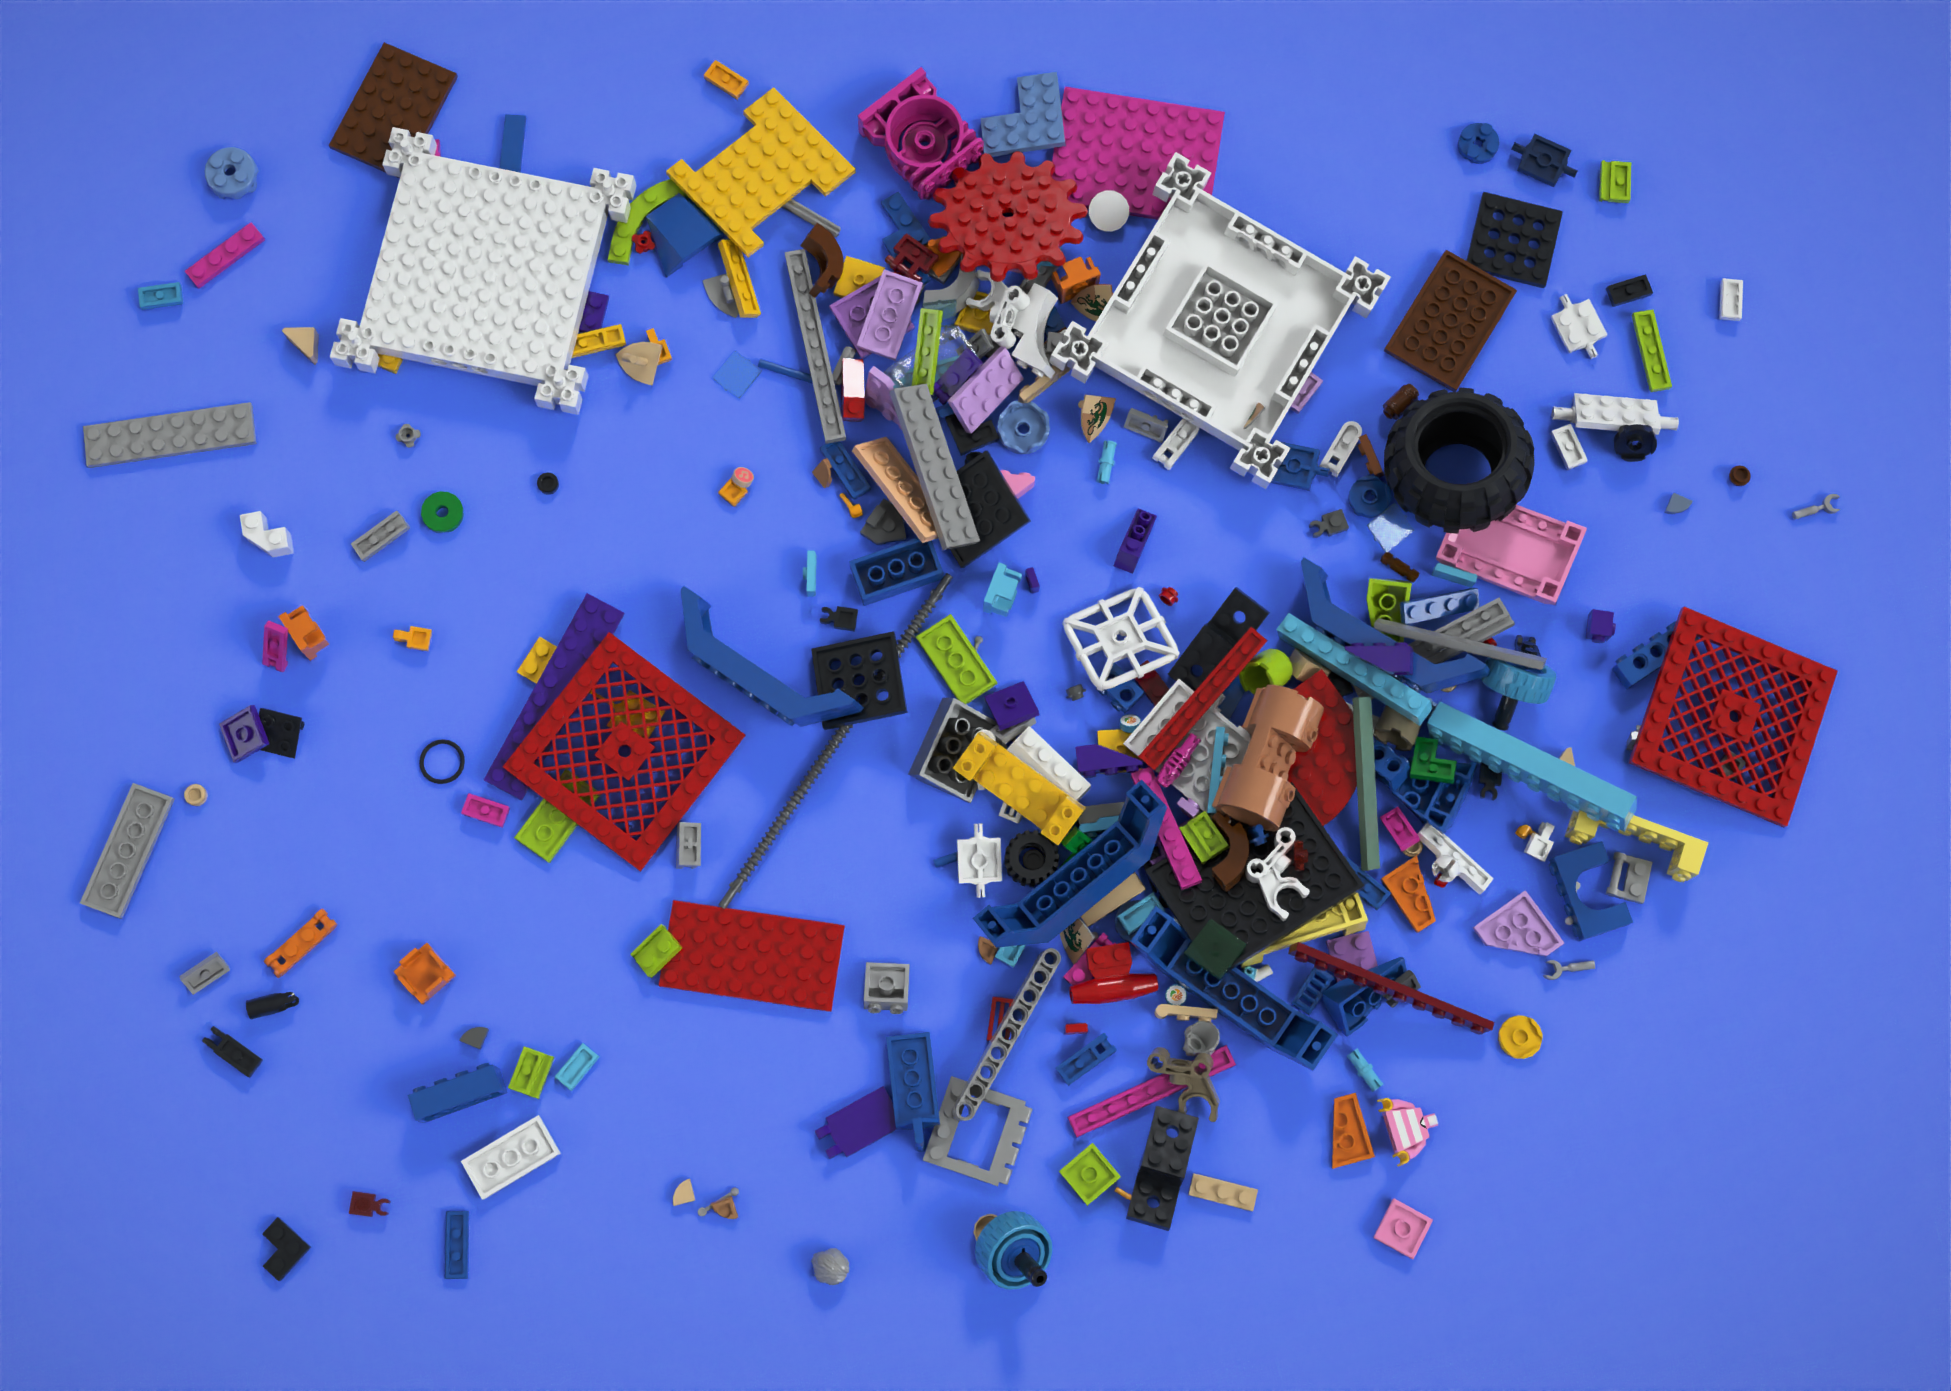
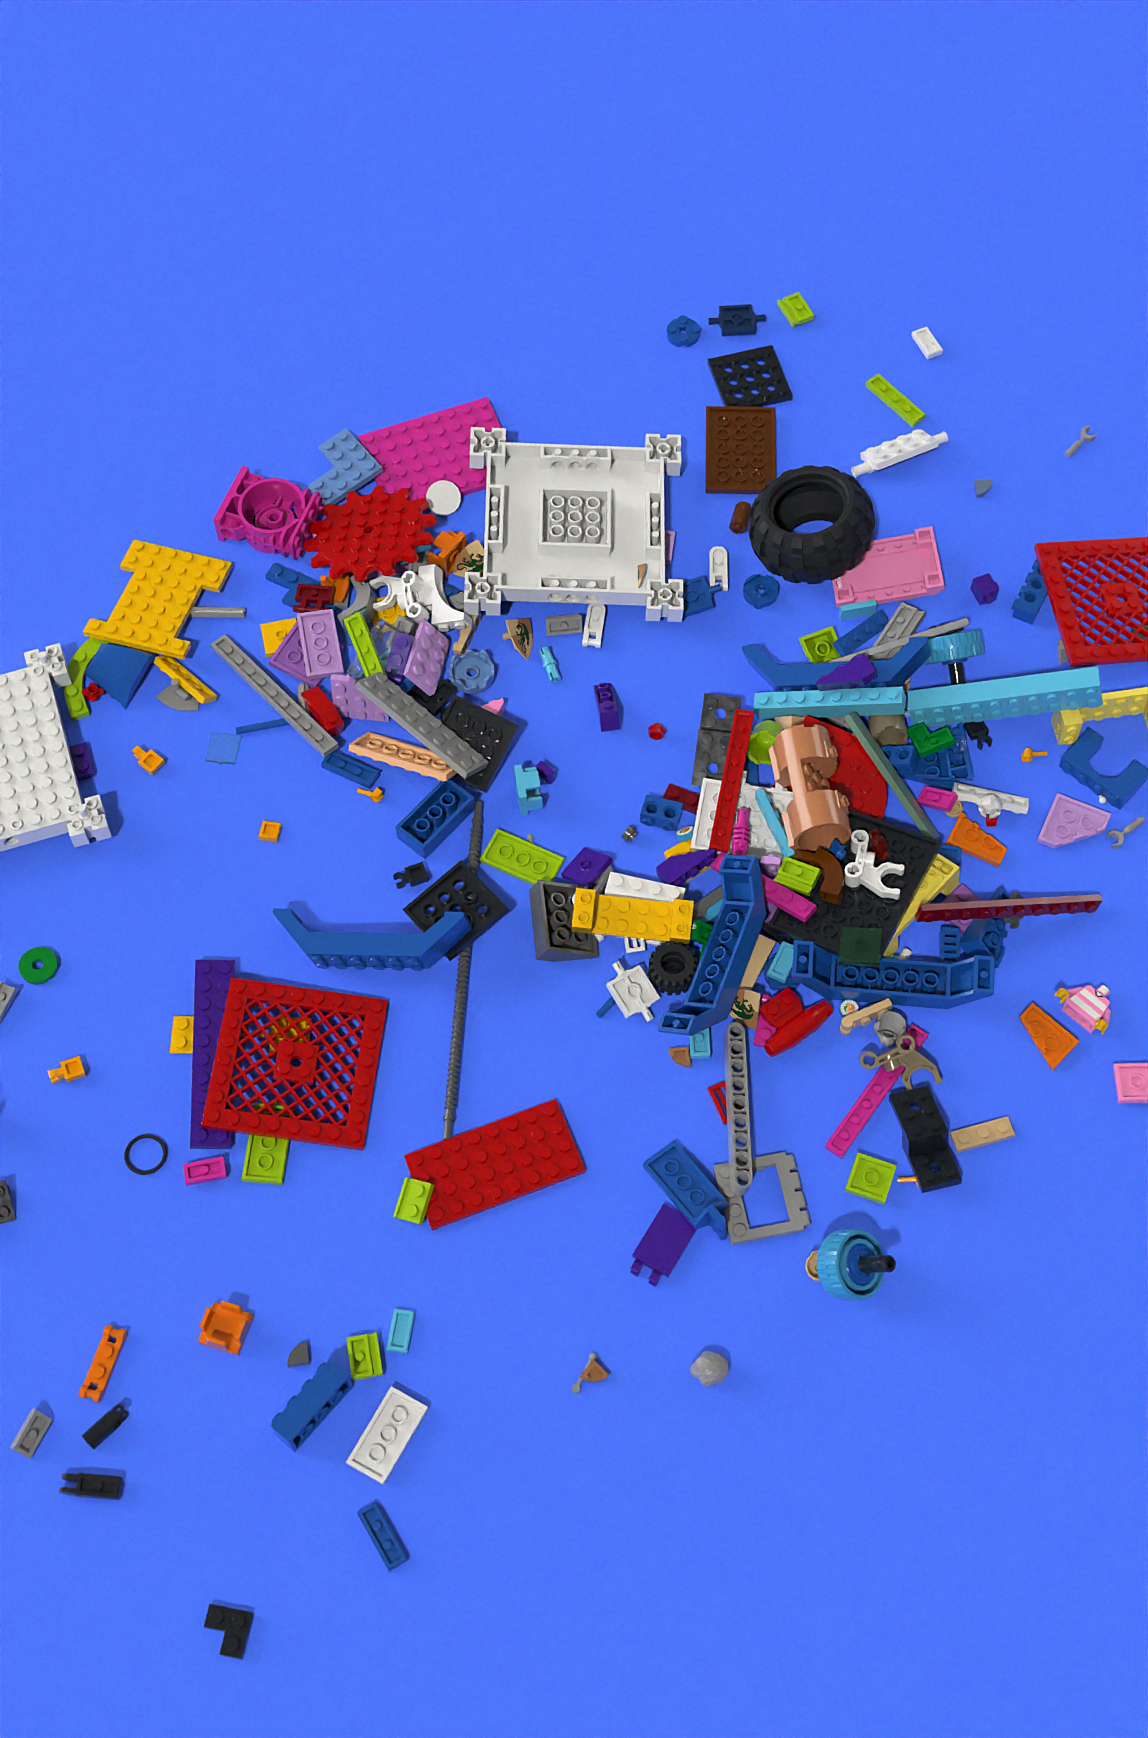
camera: 25 degrees left, 15 degrees down
(365, 1204) = (281, 1547): clear red plate -> none
(548, 483) = (114, 900): black tile -> none
(599, 340) = (98, 777): yellow plate -> none
(640, 361) = (139, 774): tan shield -> none
(683, 1193) = (552, 1382): tan tile -> none
(688, 845) = (391, 1106): light grey hinge -> none
(726, 79) = (93, 551): light orange plate -> none
(742, 477) = (272, 815): tile -> none
(809, 573) = (368, 856): medium azure plate -> none
(823, 473) = (334, 780): medium nougat tile -> none
(828, 255) = (246, 629): reddish brown arch -> none
(884, 524) = (405, 793): dark grey plate -> none
(886, 987) = (619, 1126): light grey plate -> none
(1080, 1028) = (789, 1075): red tile -> none
(1085, 1059) = (810, 1095): blue plate -> none
(1116, 650) = (641, 785): white plate -> none
(1331, 523) = (744, 622): dark grey plate -> none
(1365, 1070) = (1028, 984): medium azure pin -> none
(1366, 449) = (747, 565): dark orange plate -> none
(1390, 527) = (789, 603): clear light blue piece -> none
(1399, 567) = (812, 625): reddish brown axle -> none
(1520, 1037) = (1125, 898): yellow tile -> none
(1538, 844) = (1044, 757): white plate -> none
(1568, 447) = (880, 488): white plate -> none
(1579, 326) = (833, 410): white plate -> none
(1629, 290) = (853, 370): black plate -> none
(1635, 880) = (1129, 744): light grey plate -> none
(1636, 432) = (917, 456): black plate -> none
(1739, 475) = (1012, 447): reddish brown plate -> none

